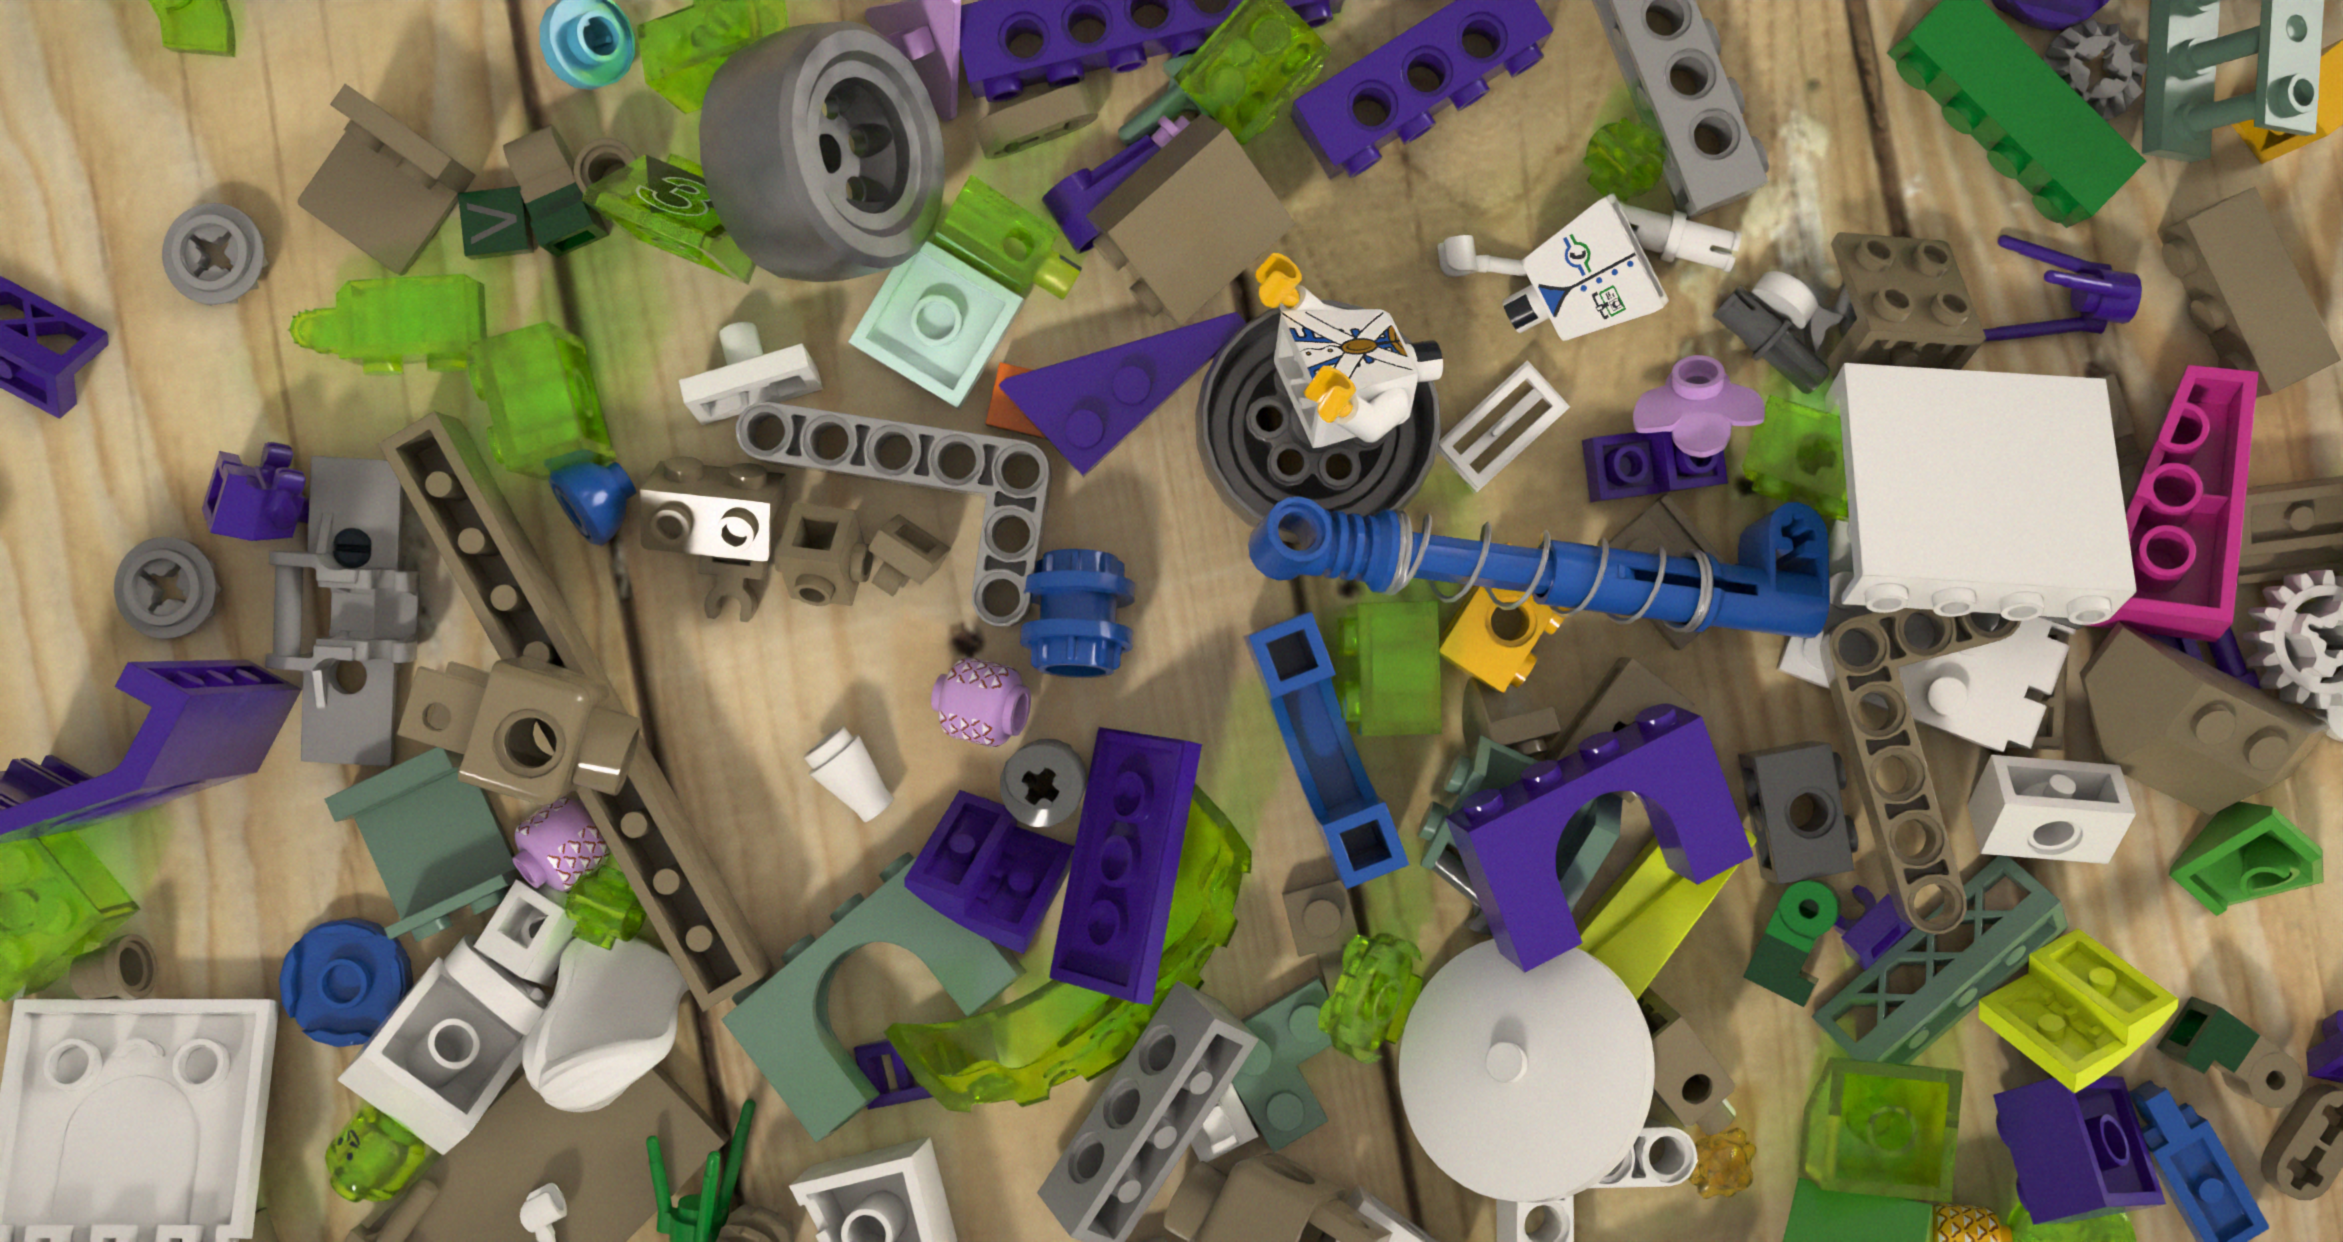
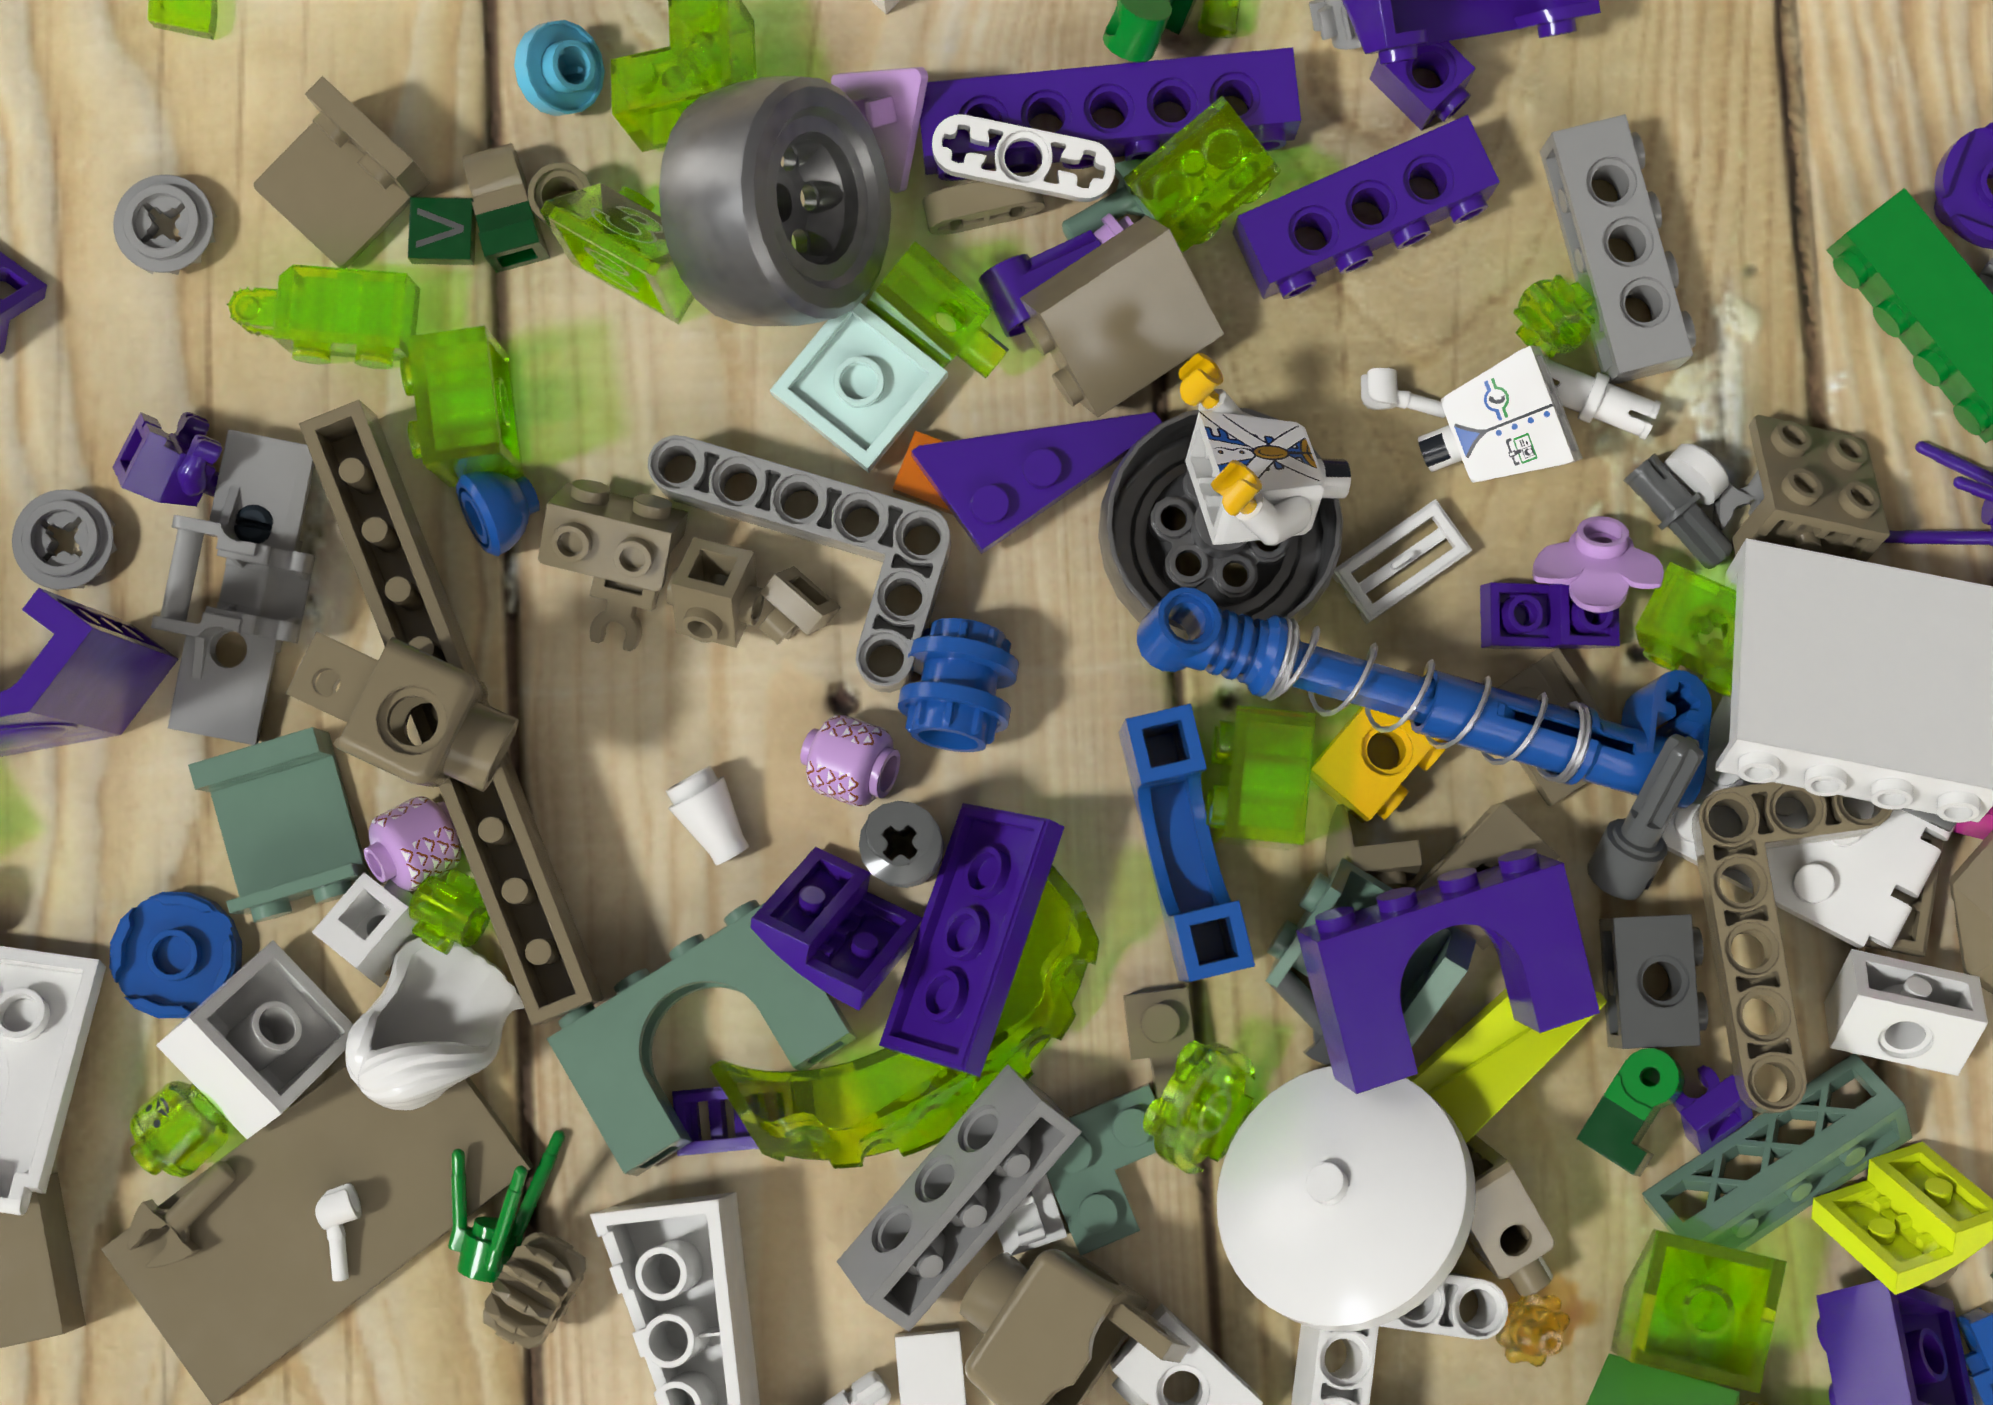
camera: 10 degrees right, 5 degrees down
(501, 990) = (327, 975): white beam -> none
(749, 376) = (667, 411): white tile -> none
(1019, 83) = (1010, 133): none -> white beam
(1766, 682) = (1634, 846): none -> dark grey piece

